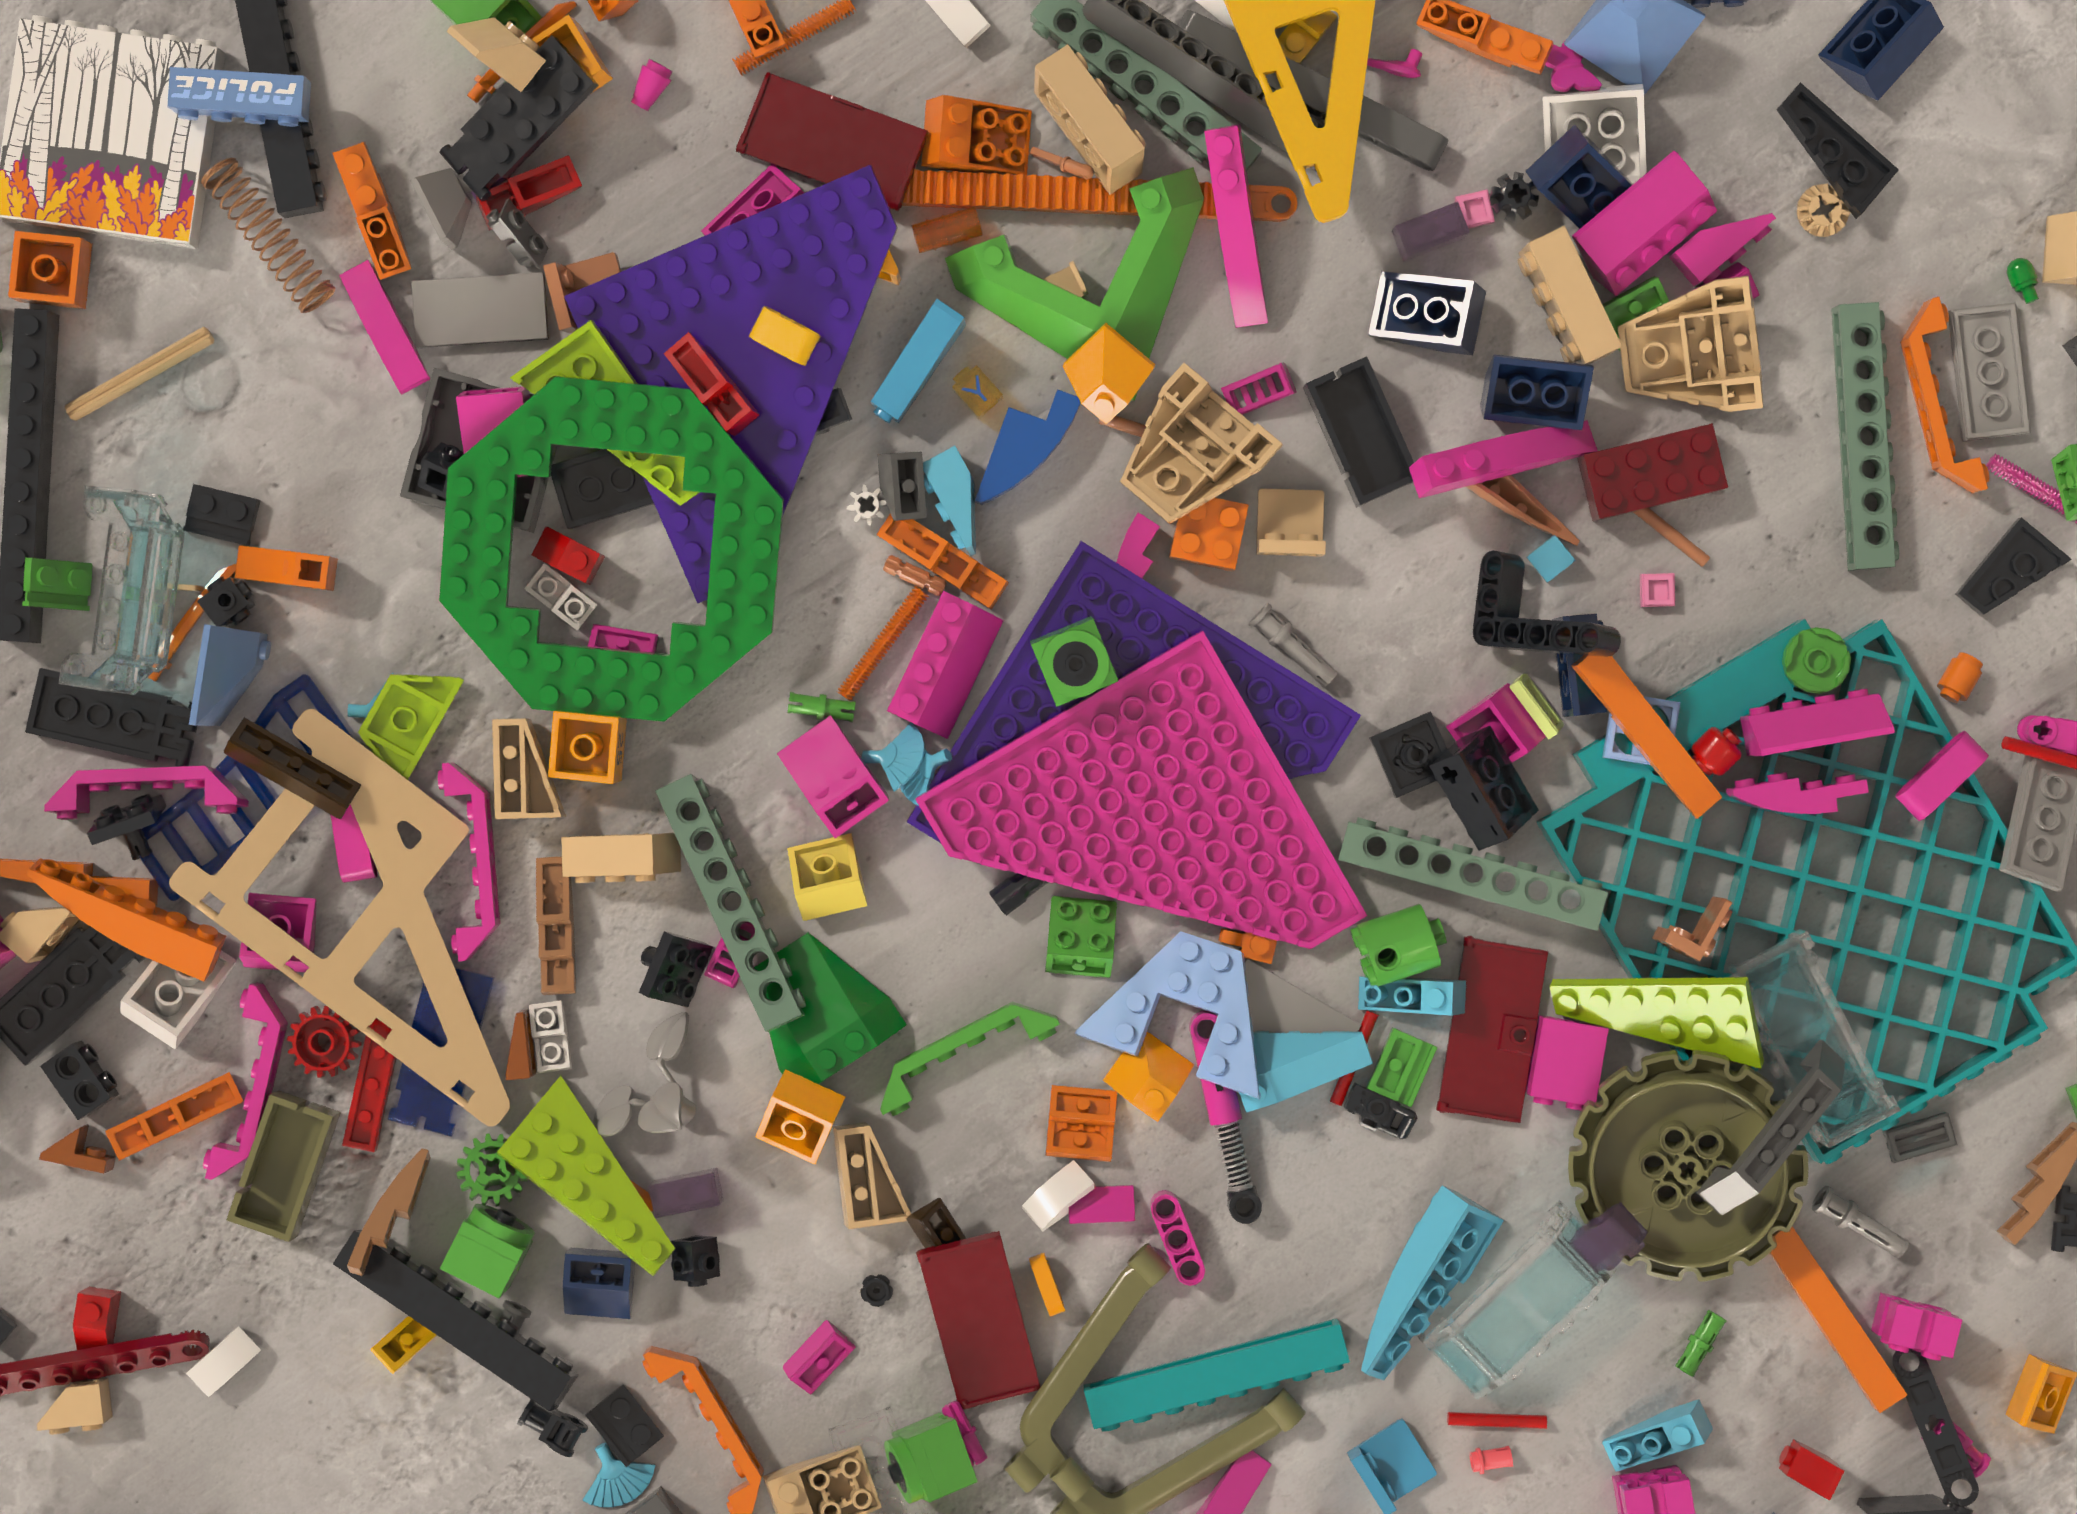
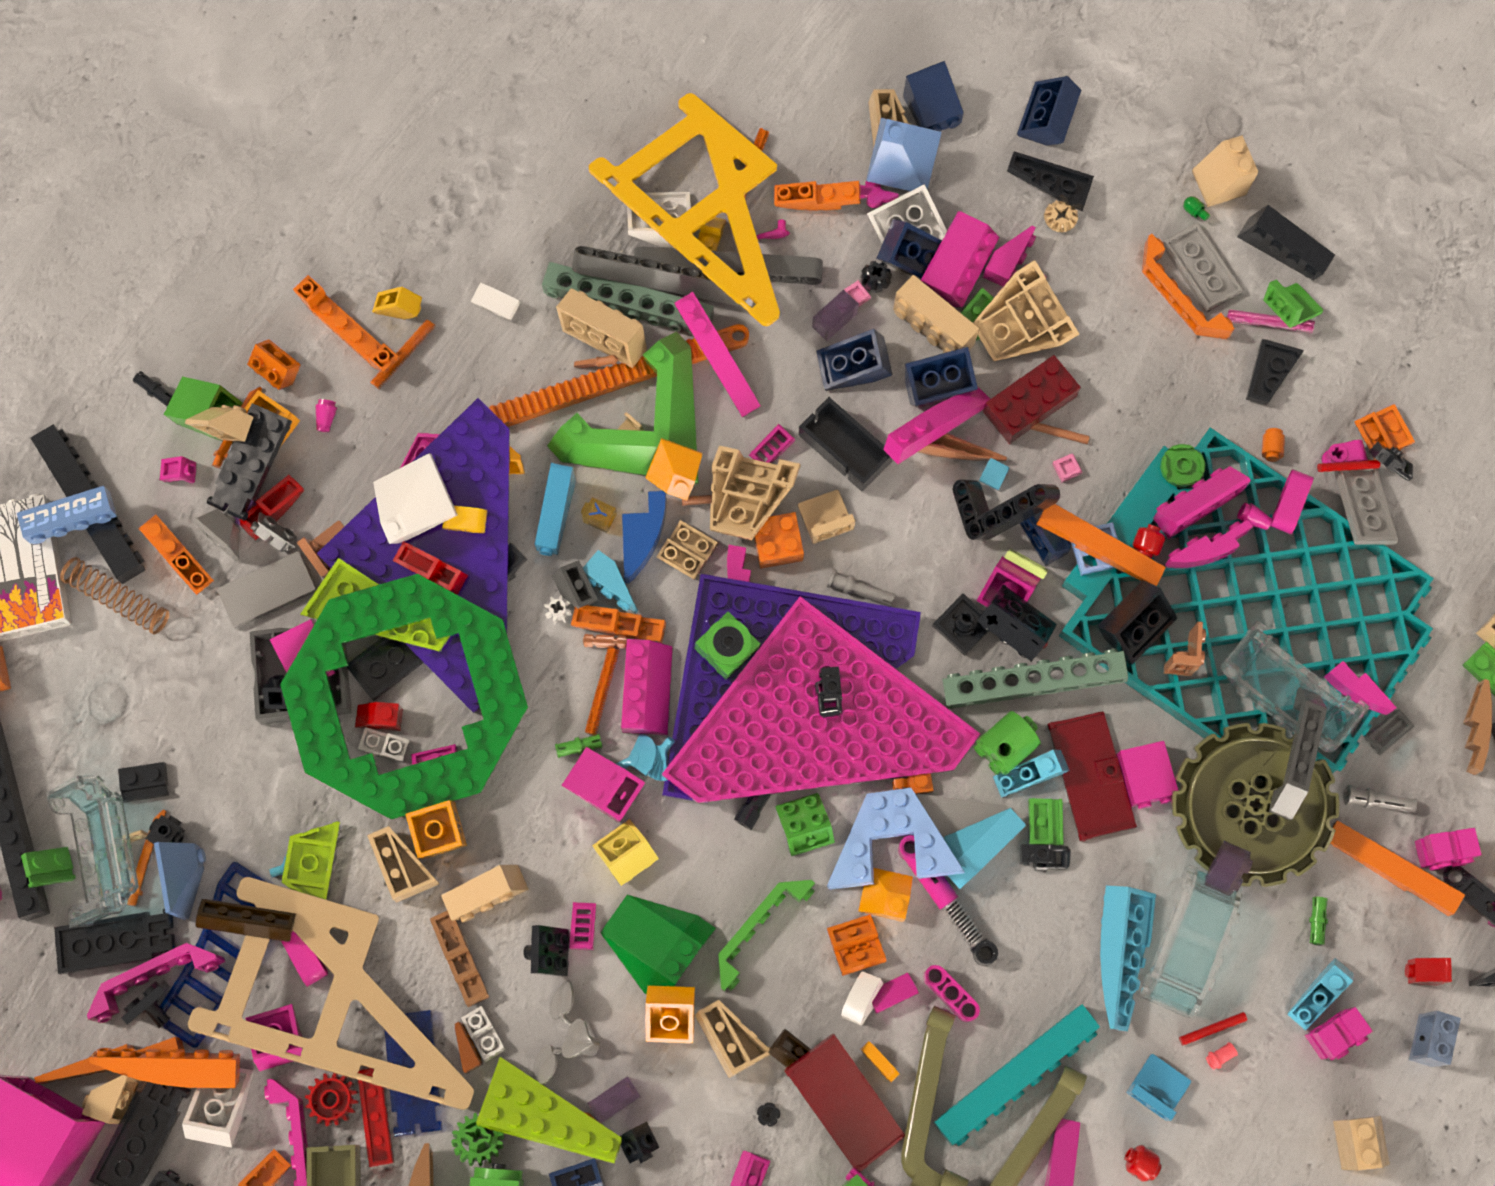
camera: 20 degrees left, 15 degrees down
(139, 373) = (59, 715): tan axle -> none
(286, 567) = (198, 796): orange slope -> none
(384, 327) = (209, 622): dark pink slope -> none
(416, 82) = (177, 469): none -> dark pink bracket
(470, 938) = (406, 987): dark pink slope -> none
(674, 800) = (507, 840): sand green brick -> none
(721, 281) = (412, 500): none -> white slope
(830, 137) = (437, 402): dark red door -> none
(947, 230) = (541, 428): clear orange axle -> none
(976, 136) = (536, 367): orange slope -> none
(1079, 491) = (687, 550): none -> tan slope
(1188, 780) = (830, 691): none -> black piece
(1345, 1081) = (1013, 844): red bar -> none
(1648, 855) = (1138, 621): none -> black slope
(1681, 1012) = (1199, 709): lime wing -> none
(1851, 421) = (1178, 396): sand green brick -> none
(1879, 774) = (1254, 515): none -> dark pink cone
(1903, 1070) = (1359, 688): none -> dark pink slope

